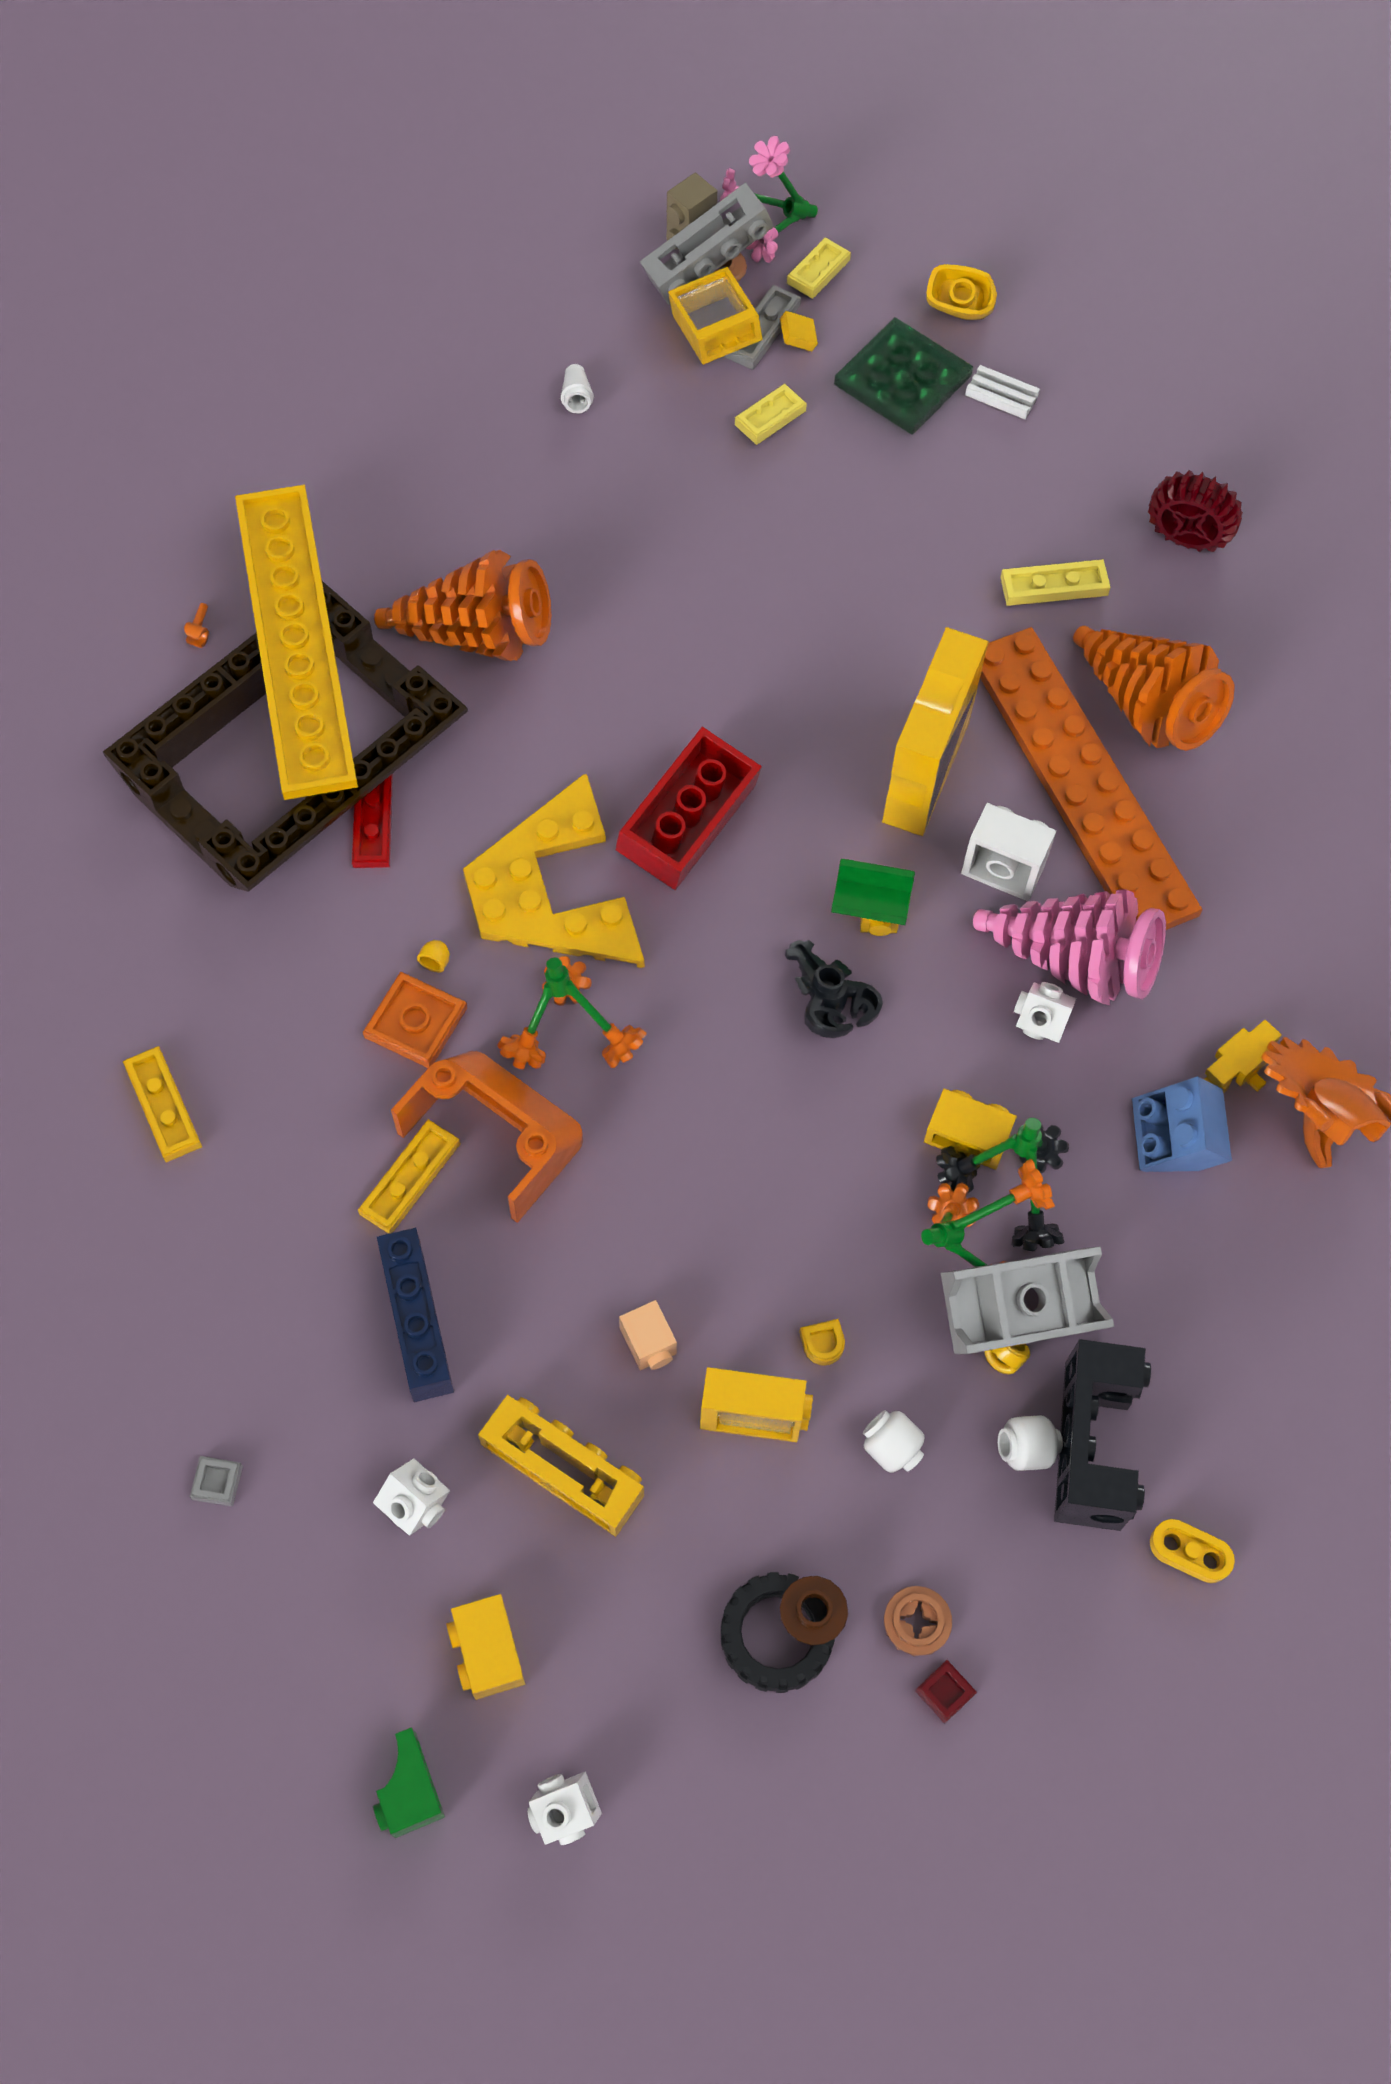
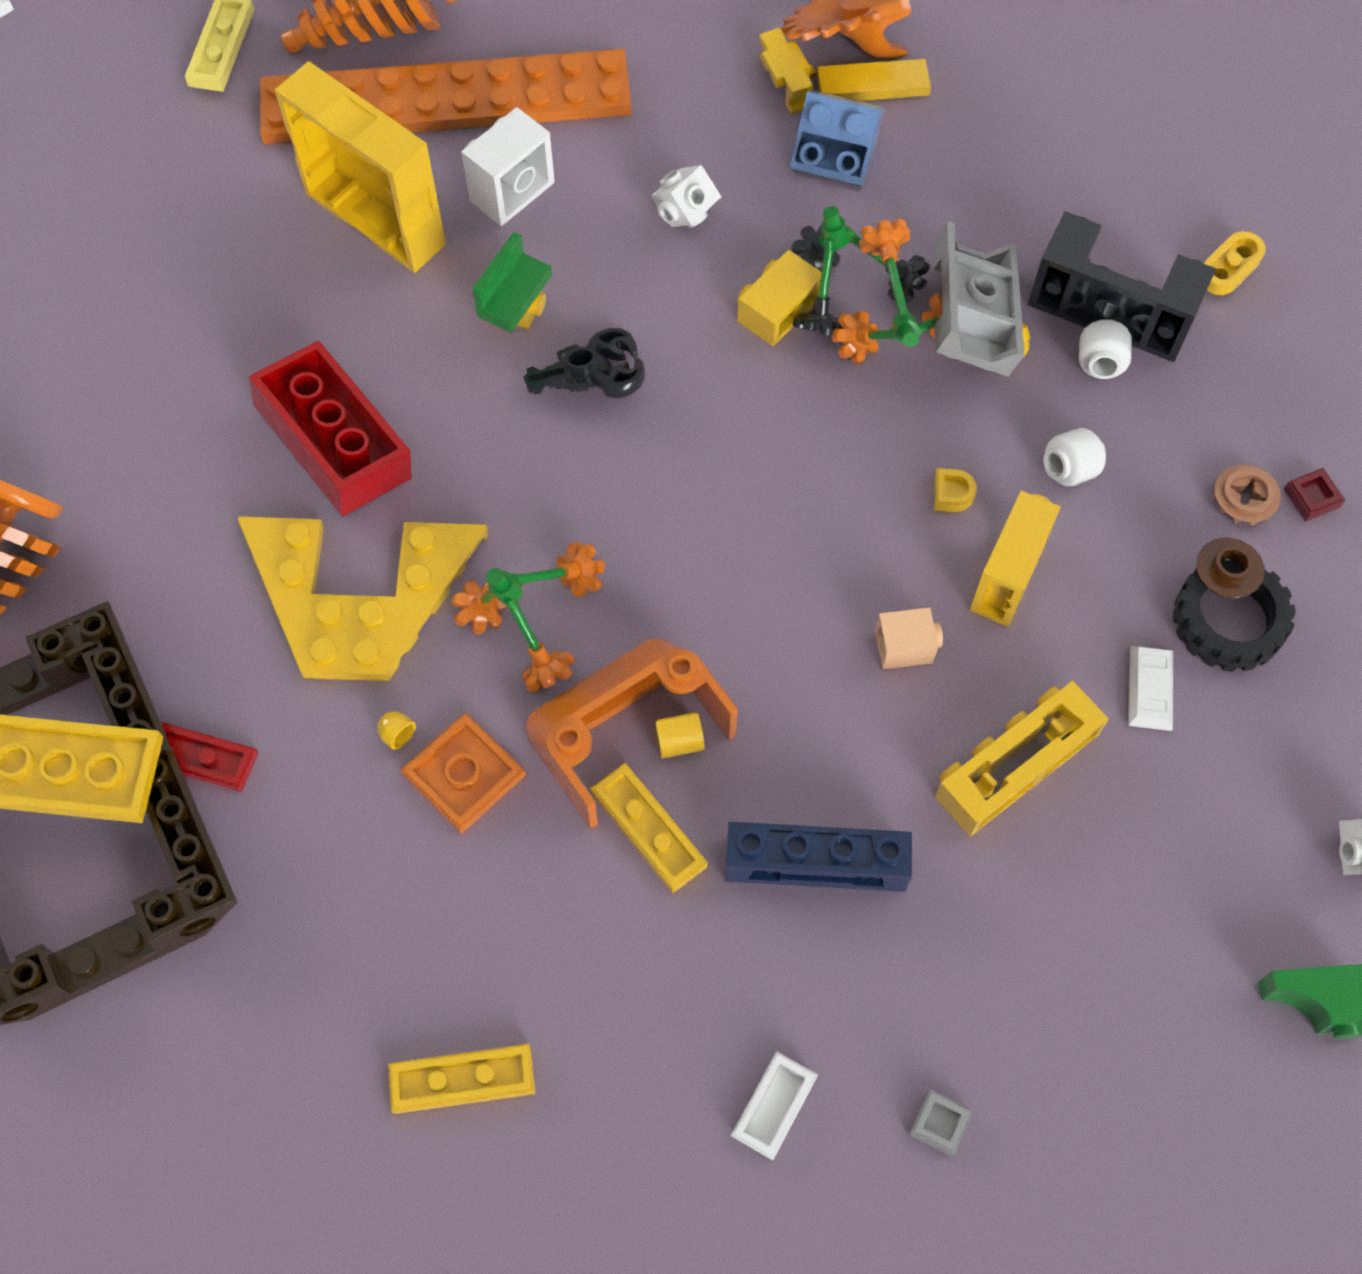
camera: 70 degrees left, 0 degrees up
(196, 1342) = (774, 1105): none -> white tile
(412, 1497) = (1022, 911): white brick -> none
(486, 1647) = (1194, 881): yellow brick -> none
(493, 1173) = (679, 735): none -> yellow brick
(677, 1573) = (1150, 688): none -> white tile
(1085, 941) = (632, 134): bright pink plant -> none
(1272, 1146) = (875, 80): none -> yellow tile

